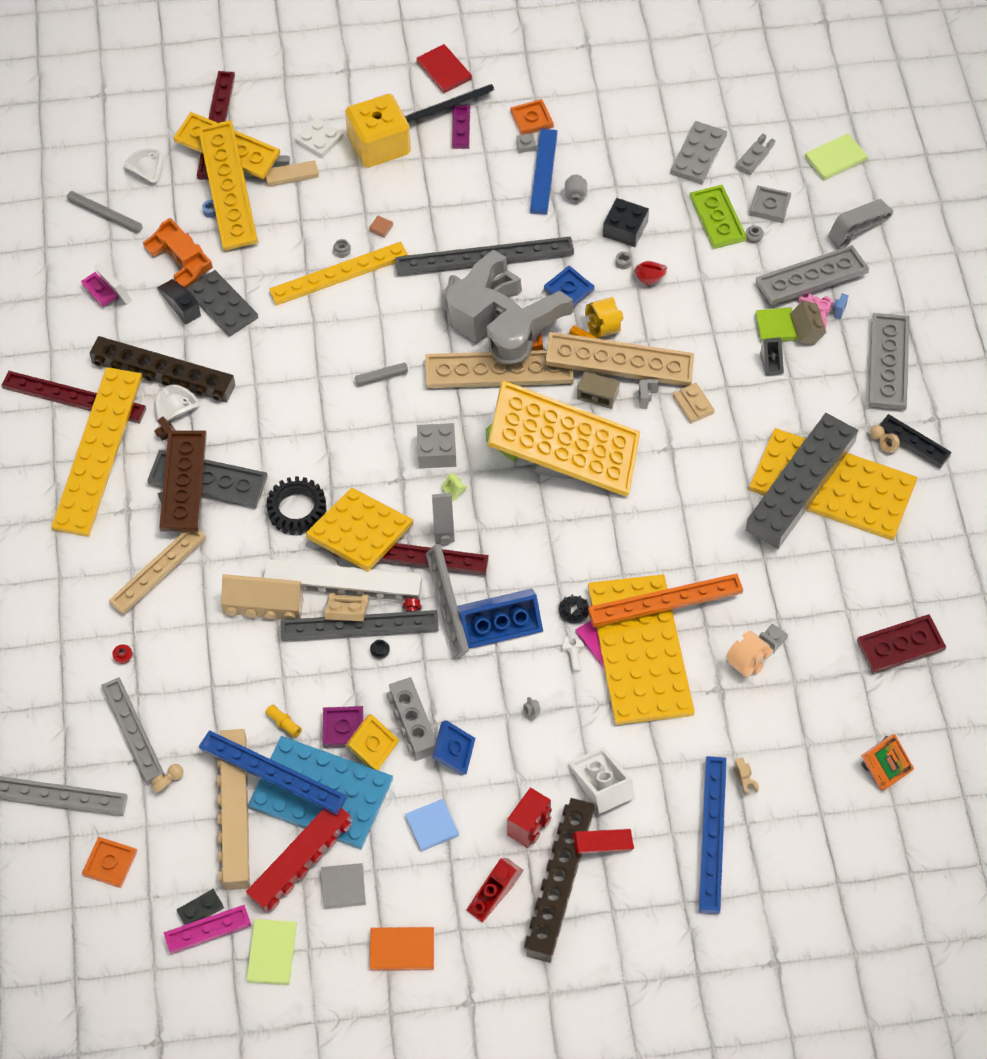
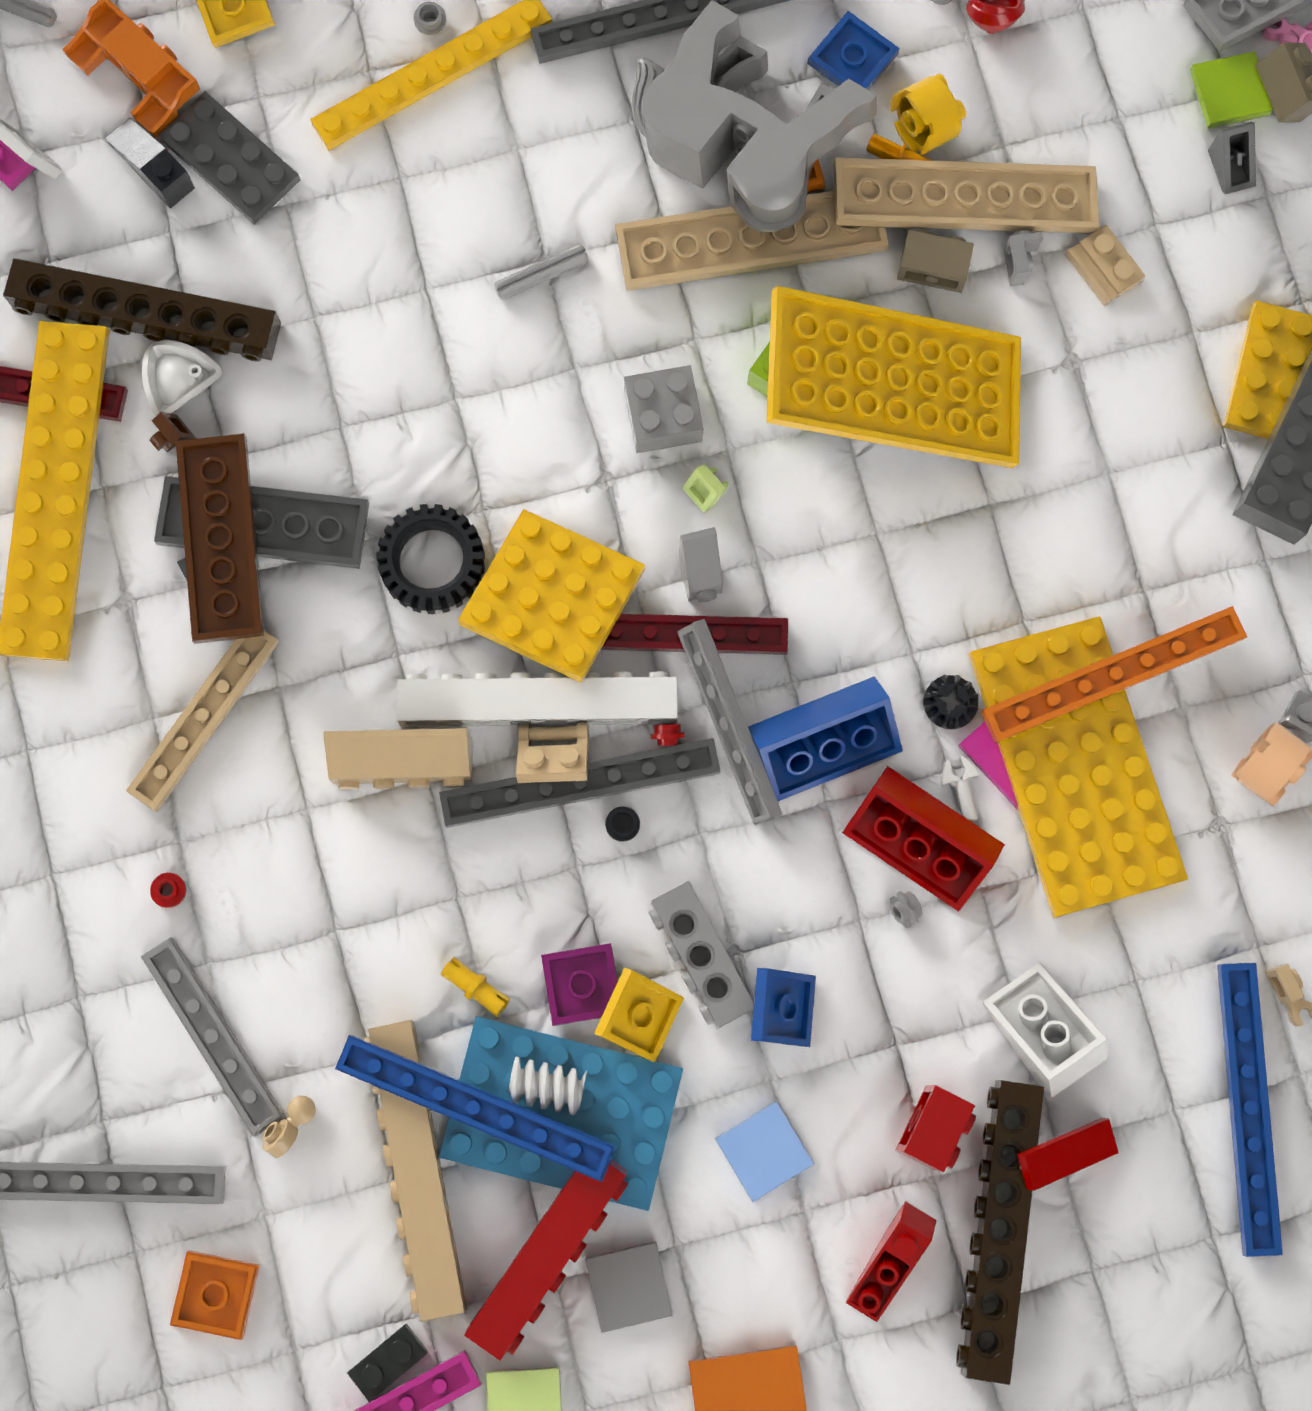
camera: 10 degrees left, 20 degrees up
(315, 770) = (546, 1086): none -> white piece
(546, 674) = (923, 839): none -> red slope

